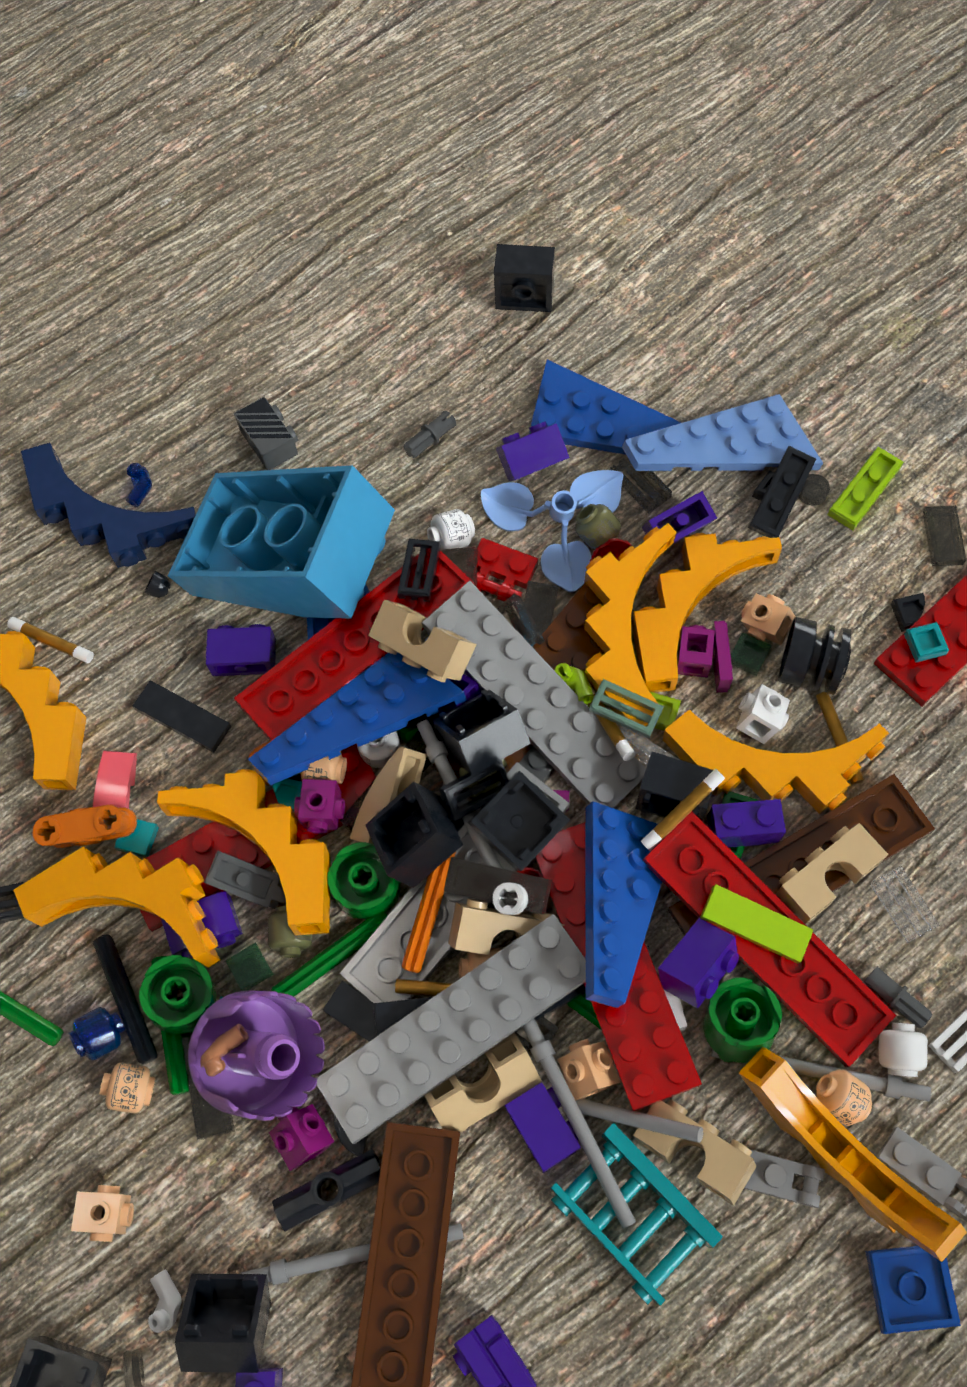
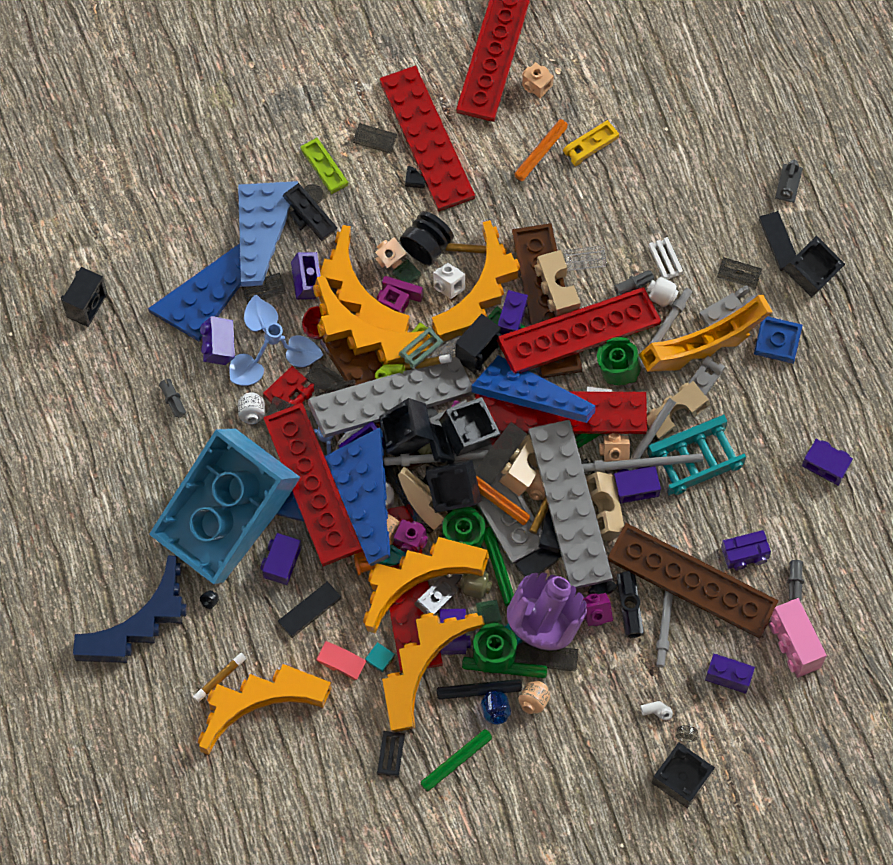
camera: 75 degrees left, 0 degrees up
(84, 826) = (365, 680): orange piece -> none
(102, 1213) = (599, 726): light nougat brick -> none
(141, 482) = (126, 589): clear blue arm -> none
(212, 1057) = (539, 623): nougat arm -> none
(223, 1323) = (680, 673): black container -> none
(266, 433) = (125, 497): dark grey brick -> none
(415, 592) = (295, 438): black tile -> none
(443, 652) = (326, 450): tan arch -> none
(522, 899) = (518, 449): white bush -> none
(597, 525) = (290, 321): olive head -> none
(683, 809) = (497, 339): pearl gold bar -> none
(699, 963) = (582, 367): dark purple brick -> none
(756, 923) = (572, 330): lime tile -> none
(844, 1096) = (675, 328): light nougat head -> none
(926, 642) = (441, 177): teal tile -> none

